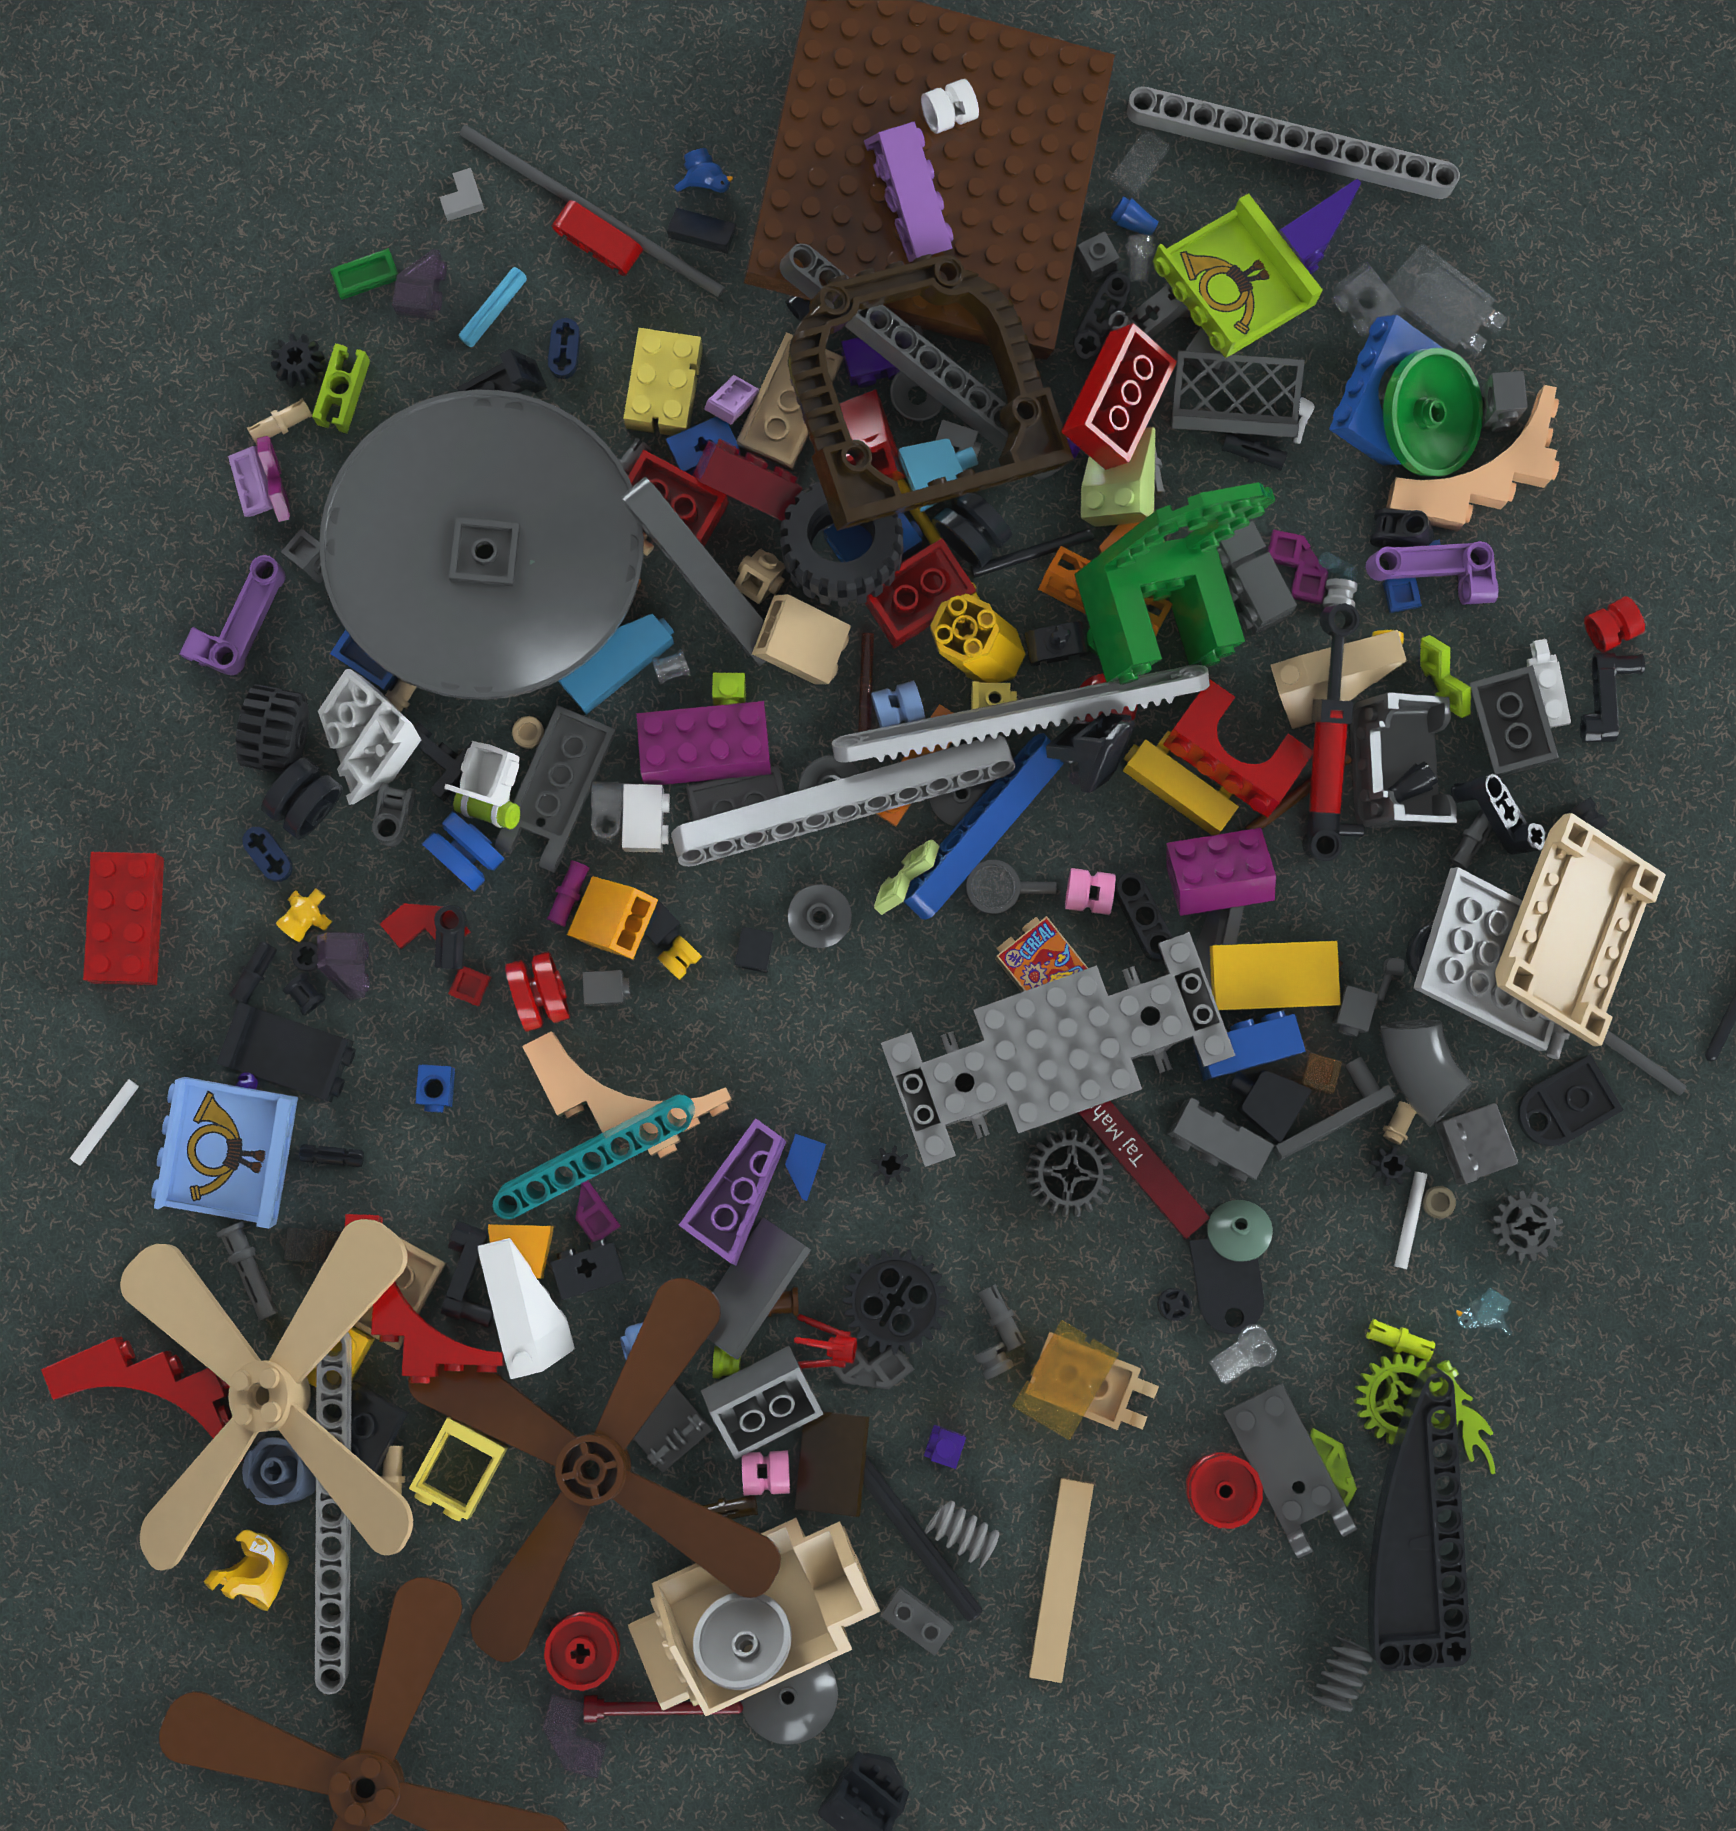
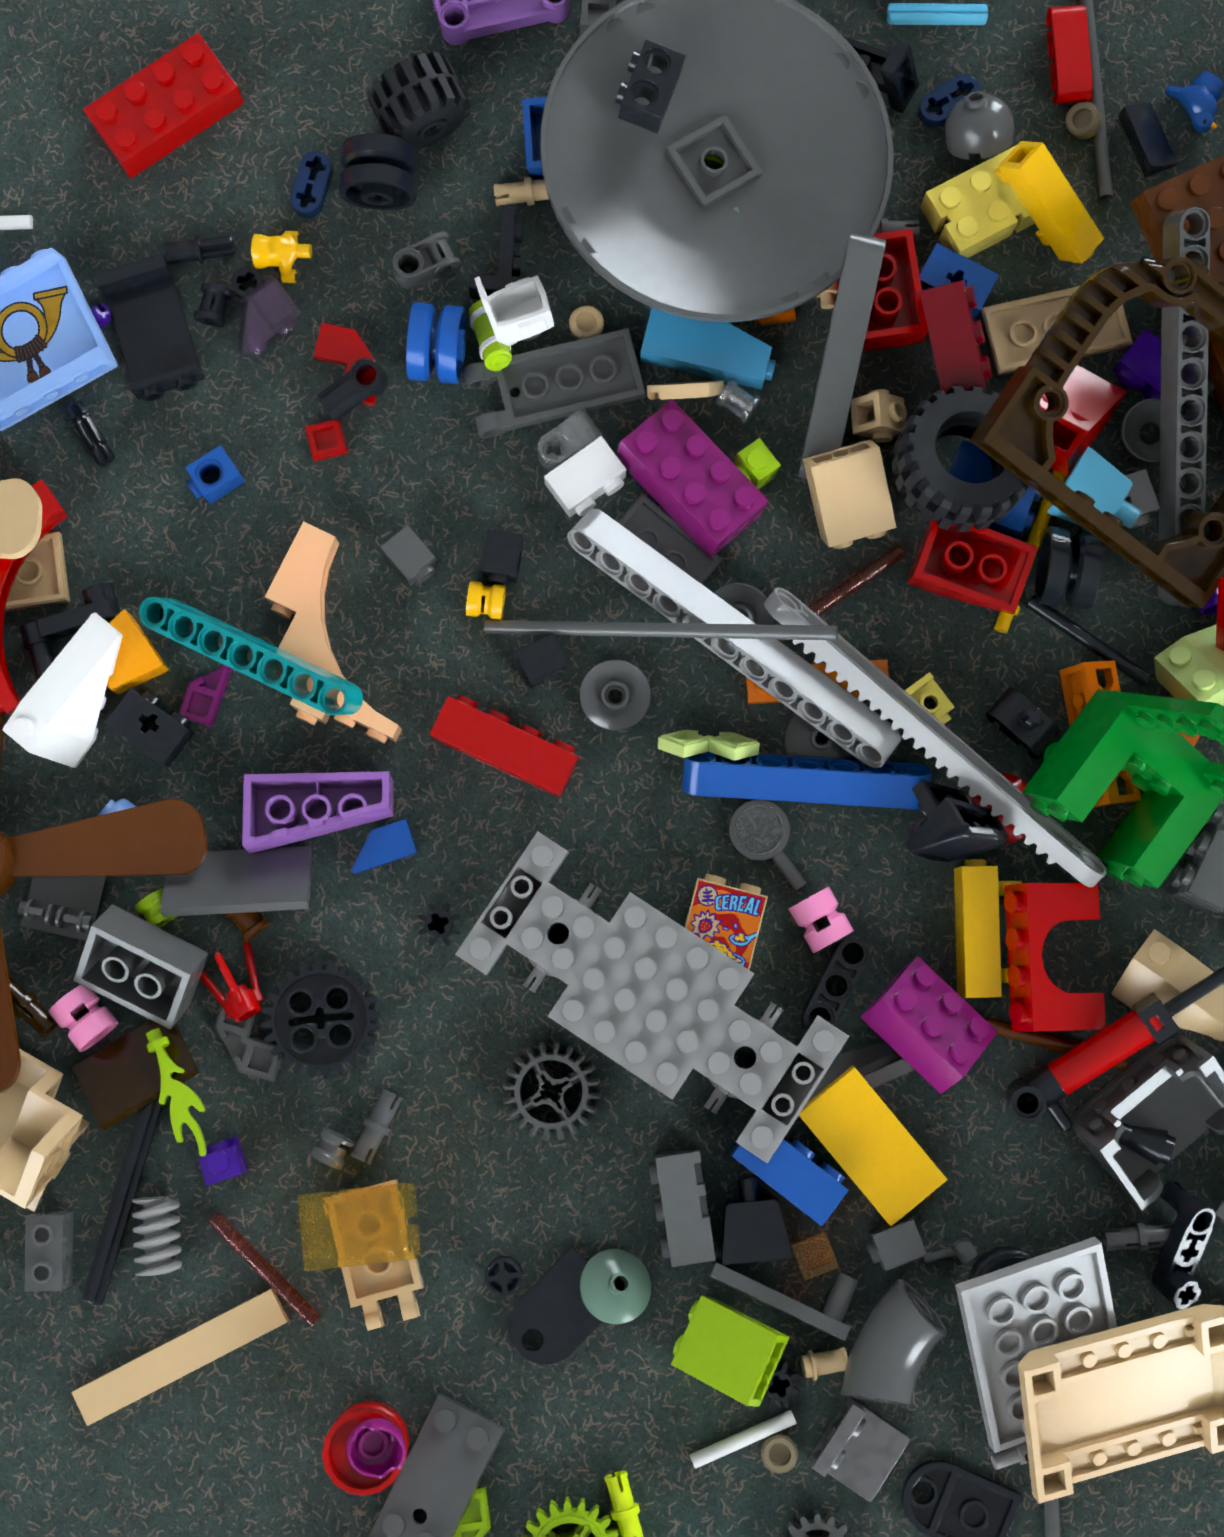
camera: 55 degrees right, 0 degrees up
(367, 734) = (479, 186): white wedge -> none
(404, 553) = (652, 86): none -> black brick
(534, 992) = (360, 498): red wheel -> none
(568, 893) = (470, 462): magenta pin -> none
(604, 343) = (979, 125): none -> dark grey cylinder
(612, 917) = (474, 513): light orange brick -> none
(636, 698) = (685, 390): none -> tan tile
(654, 265) = (1084, 120): none -> dark tan tile
(701, 338) = (1050, 202): none -> yellow brick
(731, 399) = (1017, 273): lavender plate -> none
(796, 1023) = (505, 746): none -> red brick
(799, 848) = (648, 629): none -> dark grey piece
(877, 1439) = (181, 1095): none -> lime piece
(906, 697) = (869, 622): light blue wheel -> none
(977, 640) = (970, 647): yellow brick -> none
(1043, 1474) = (264, 1269): none -> clear red bar
(1145, 1168) = (608, 1158): dark red tile -> none
(1230, 1477) = (376, 1448): none -> magenta hair
(1250, 1350) = (513, 1378): clear piece -> none
(1343, 1182) = (729, 1350): none -> lime brick

